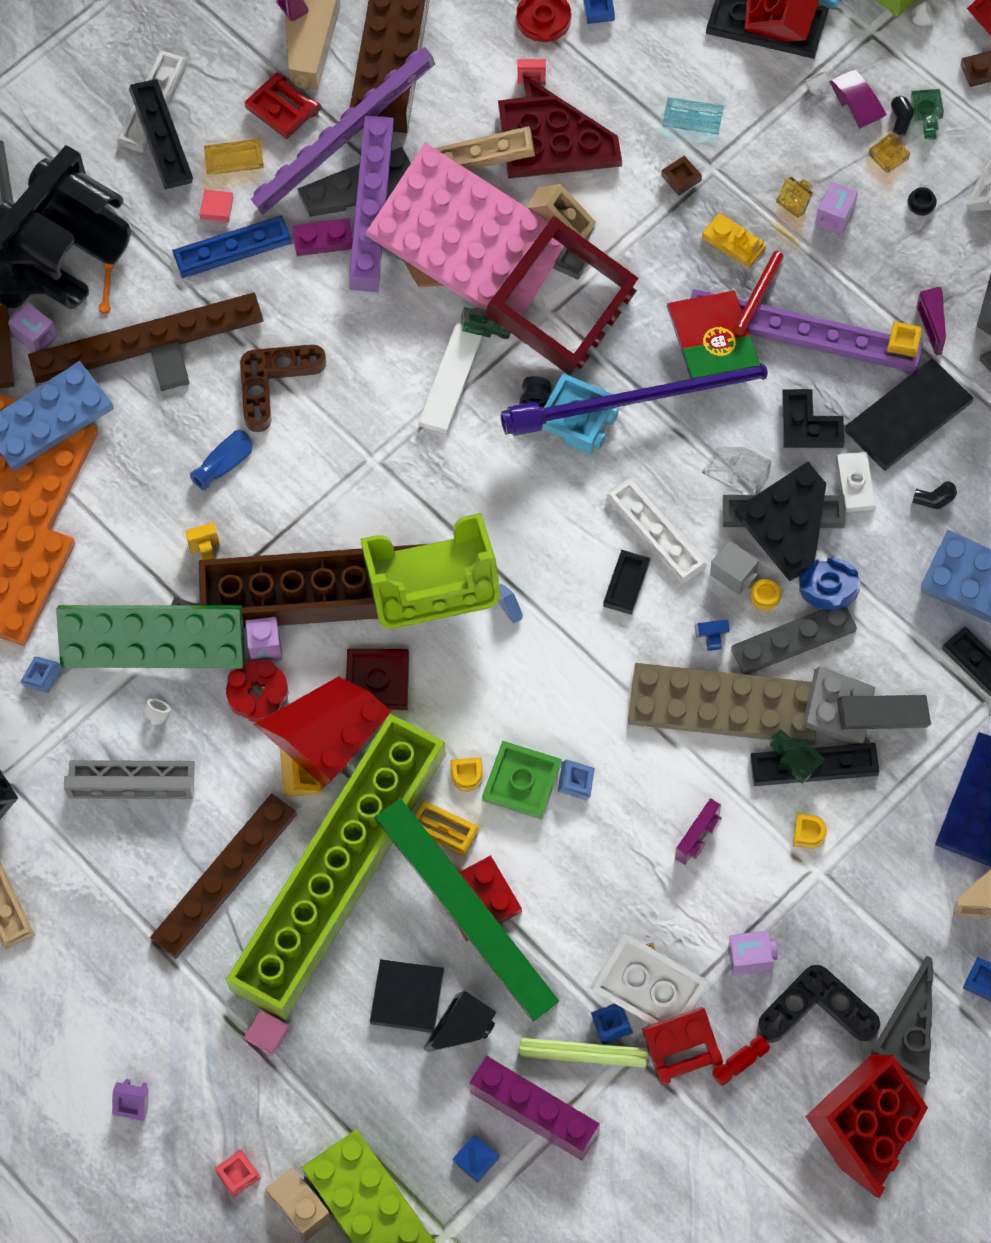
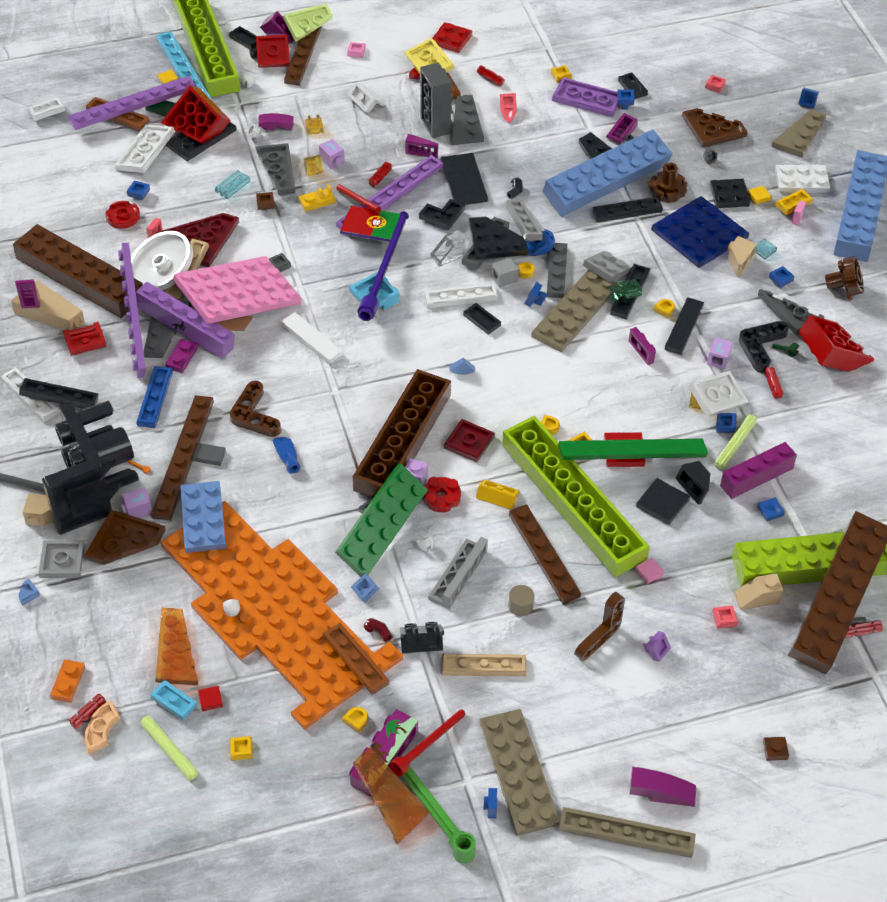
camera: 65 degrees left, 15 degrees down
(119, 882) = (521, 600): none -> dark tan piece
(126, 1012) = (611, 623): none -> reddish brown beam
(203, 539) = (335, 479): yellow tile -> none
(216, 205) = (123, 392): coral tile -> none
(233, 156) = (98, 373): clear yellow tile -> none
(325, 727) = (492, 464): red wedge -> none
(434, 577) = (439, 372): lime windscreen -> none
(464, 112) = (161, 258): none -> white dish
(478, 323) = (291, 308): clear green plate -> none
(522, 780) = (569, 402): bright green plate -> none
(535, 337) = (296, 292): dark red window -> none
(536, 390) = (349, 306): black wheel -> none
(558, 202) = (247, 249): tan slope -> none
(576, 779) = (582, 381): medium blue tile -> none
(679, 1035) = (749, 399): red plate -> none
(772, 148) = (278, 166): none -> dark grey wing
(786, 876) = (684, 326): none -> black tile
(830, 1061) = (791, 350): none -> dark green hand
(842, 295) = (380, 174): none -> red axle
(856, 482) = (481, 209): white plate -> none
(858, 540) = (524, 220): none -> light grey plate
(883, 712) = (621, 250): dark grey tile -> none
(904, 114) = (297, 109): black arm -> none
(904, 339) = (425, 158): yellow tile -> none
(922, 201) = (351, 125): black plate -> none
(929, 108) = (303, 100): clear green plate -> none

